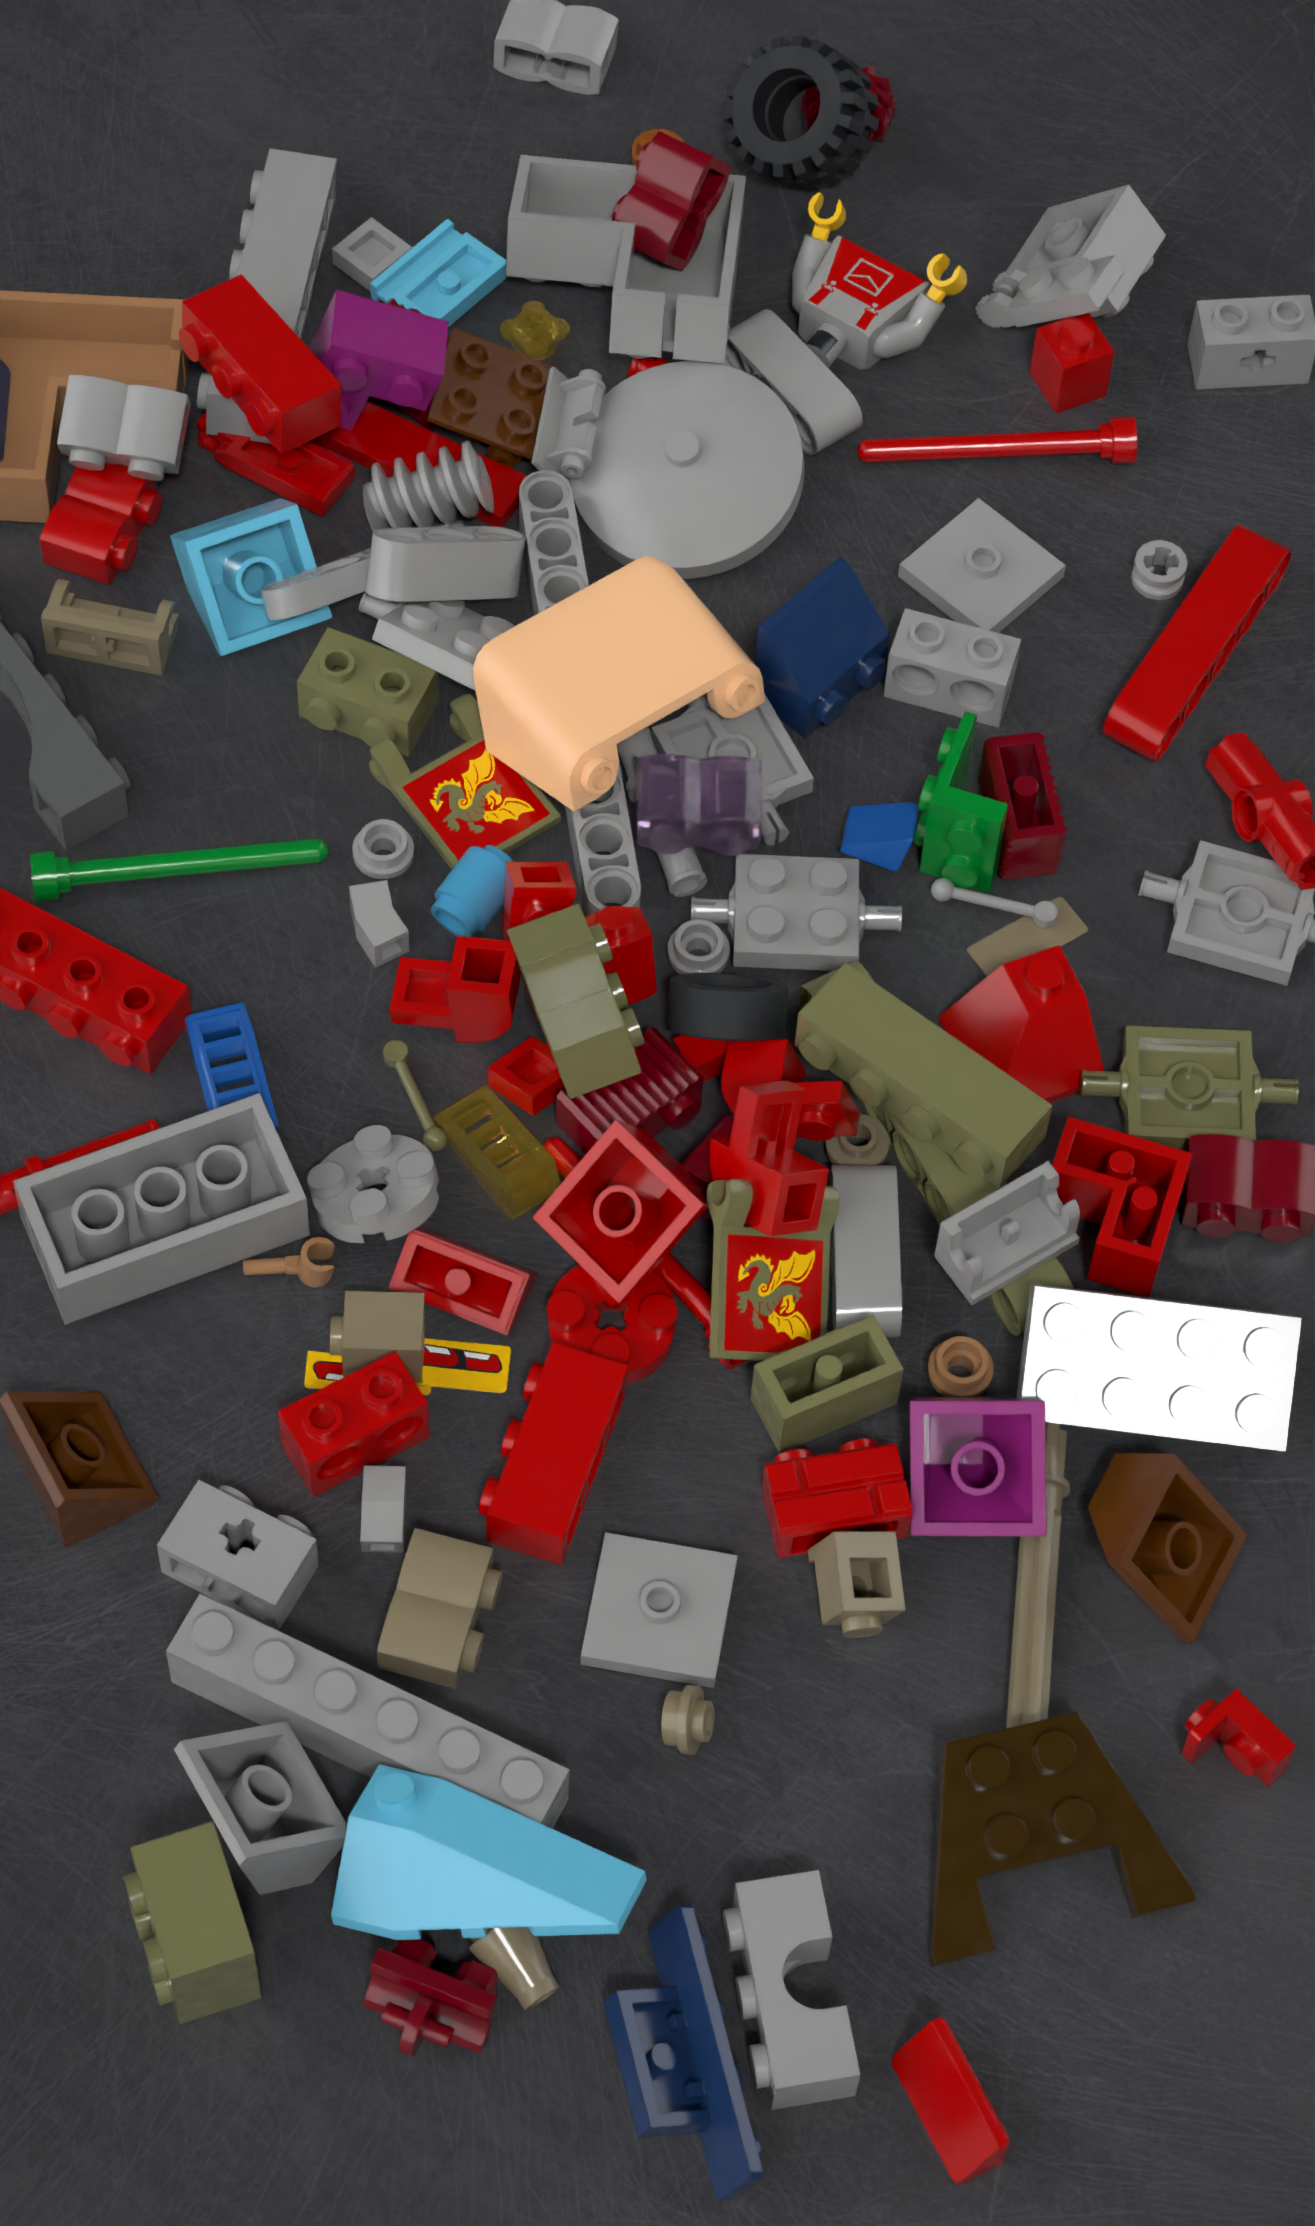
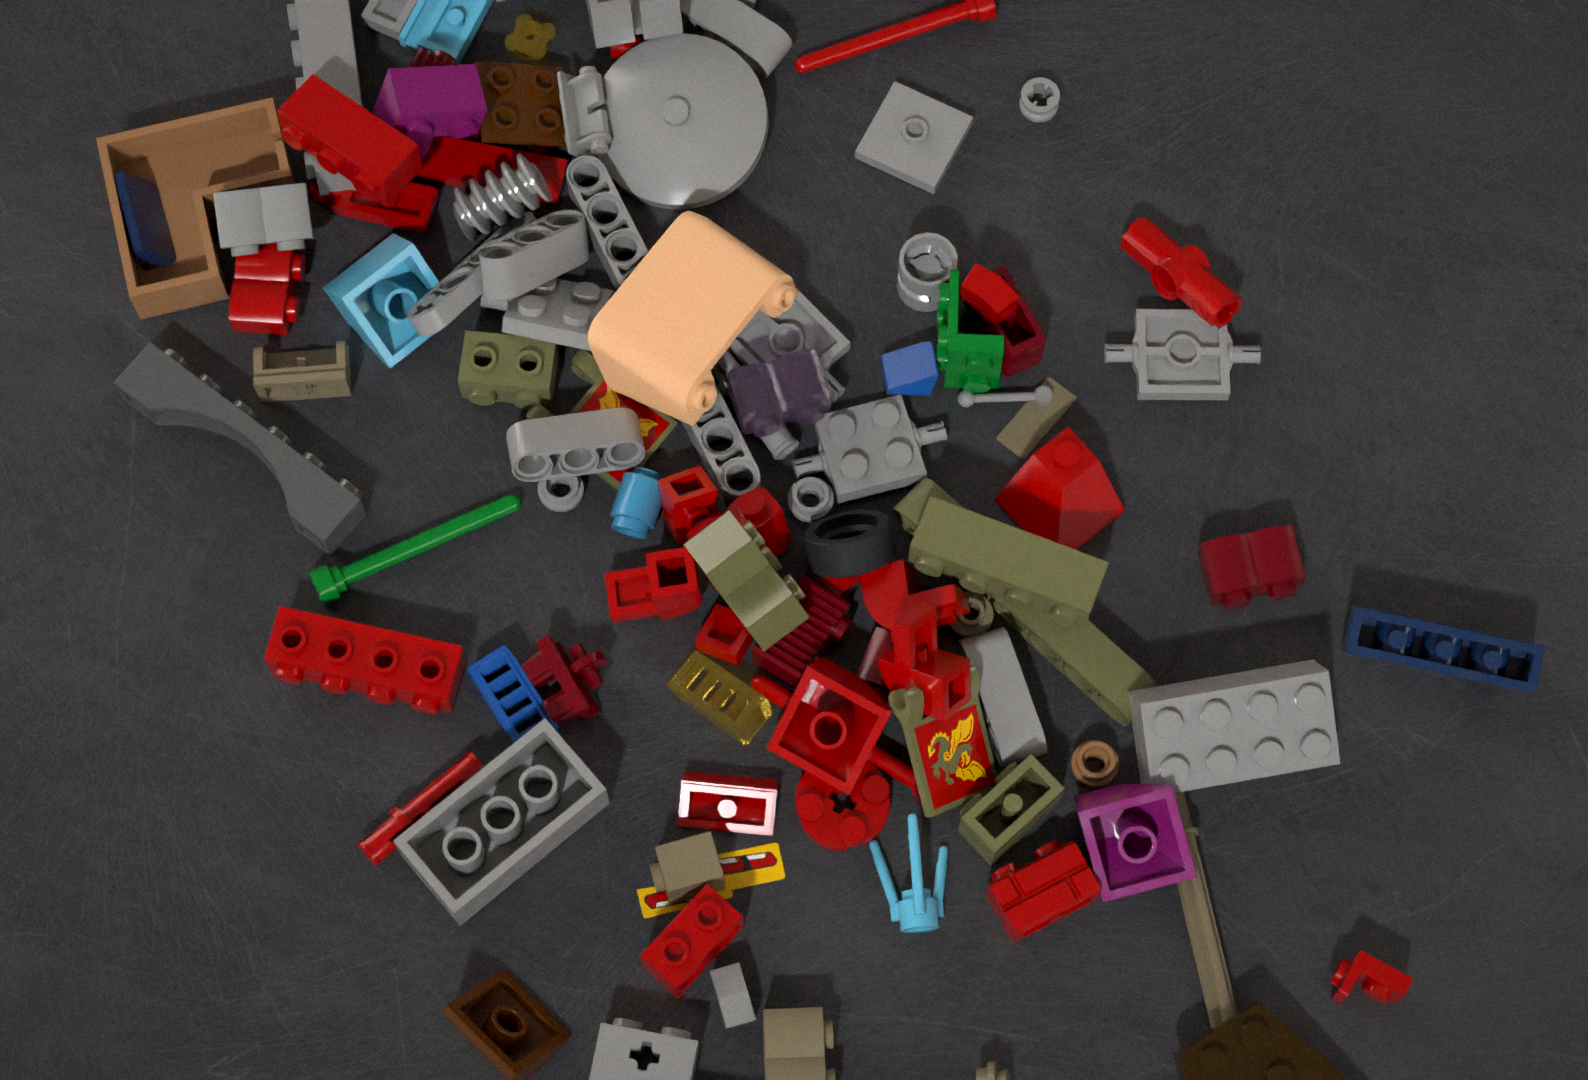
camera: 15 degrees left, 10 degrees up
(300, 1047) = (554, 663): none -> dark red hips
(308, 1273) = (606, 829): medium nougat hand -> none
(374, 1157) = (632, 735): light grey plate -> none
(377, 922) = (575, 547): light grey piece -> none
(396, 1056) = (622, 645): olive hinge -> none
(445, 803) = (575, 444): none -> light grey beam
(554, 1453) = (837, 917): red brick -> none
(659, 1610) = (946, 1009): light grey plate -> none
(662, 1475) = (917, 908): none -> medium azure plant
(821, 649) = (826, 242): dark blue slope -> none
(861, 1563) = (1078, 948): dark tan brick -> none
(932, 704) = (921, 269): none -> light grey wheel
(951, 667) = (908, 214): light grey brick -> none
(1007, 755) = (989, 293): none -> red piece
(1007, 1234) = (1104, 663): light grey hinge -> none
(1127, 1189) = (1175, 597): red brick -> none
(1165, 1537) = (1274, 849): reddish brown slope -> none
(1188, 1084) = (1185, 502): olive plate -> none
(1197, 643) = (1085, 152): red beam -> none

